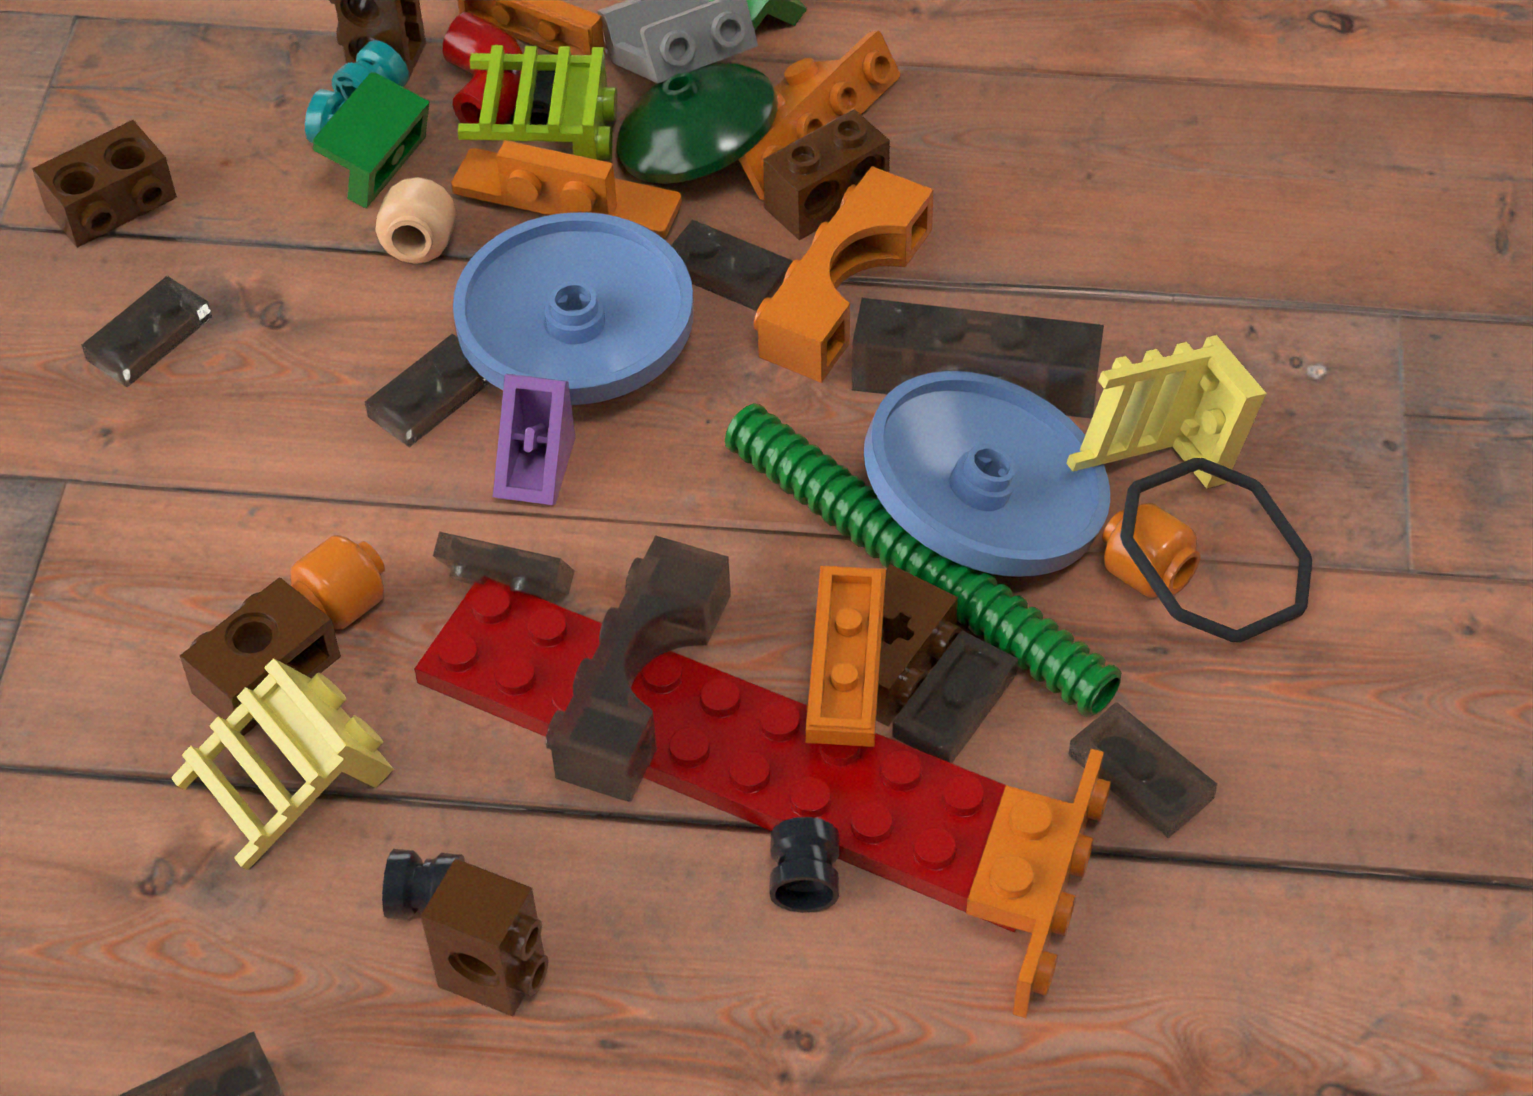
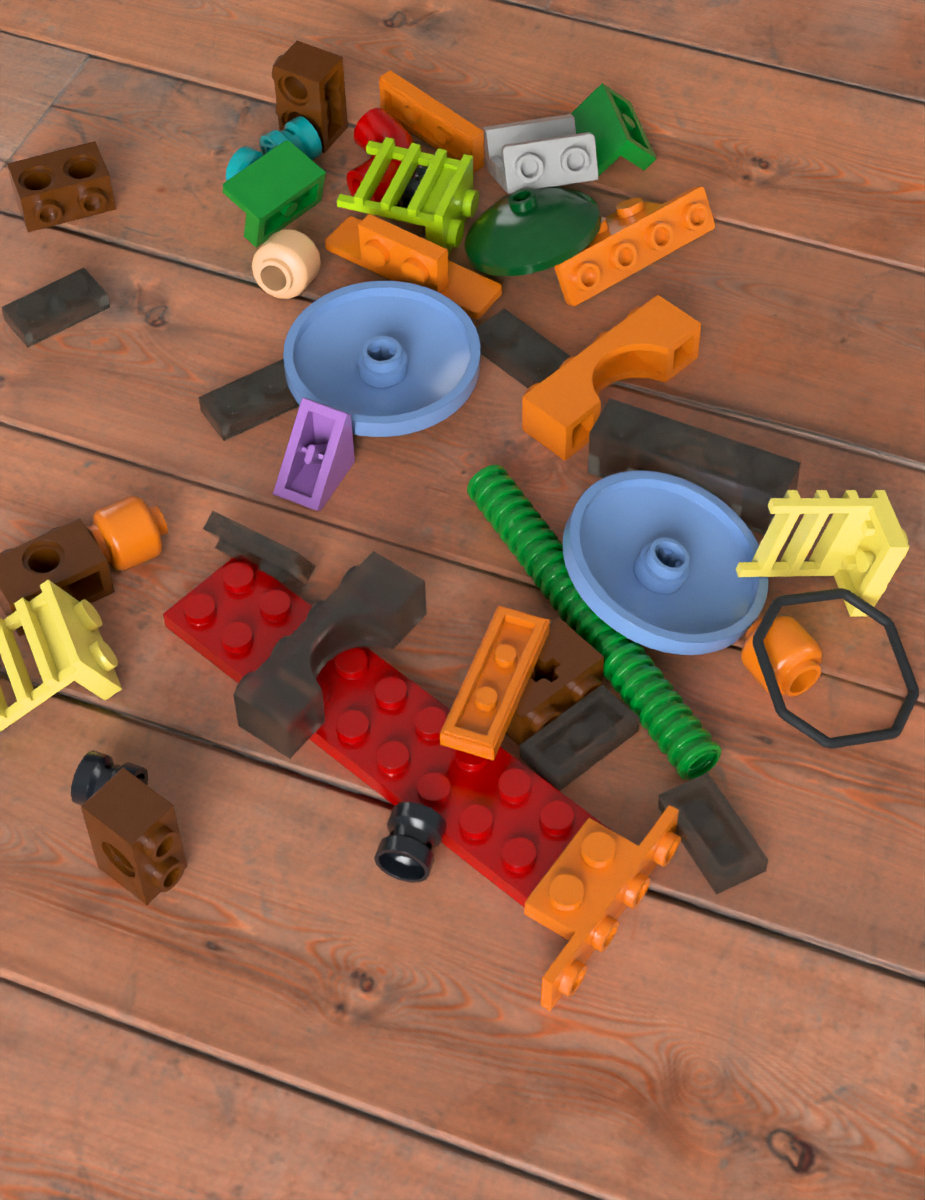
camera: 15 degrees right, 0 degrees up
(813, 173) = (610, 289): reddish brown brick -> none

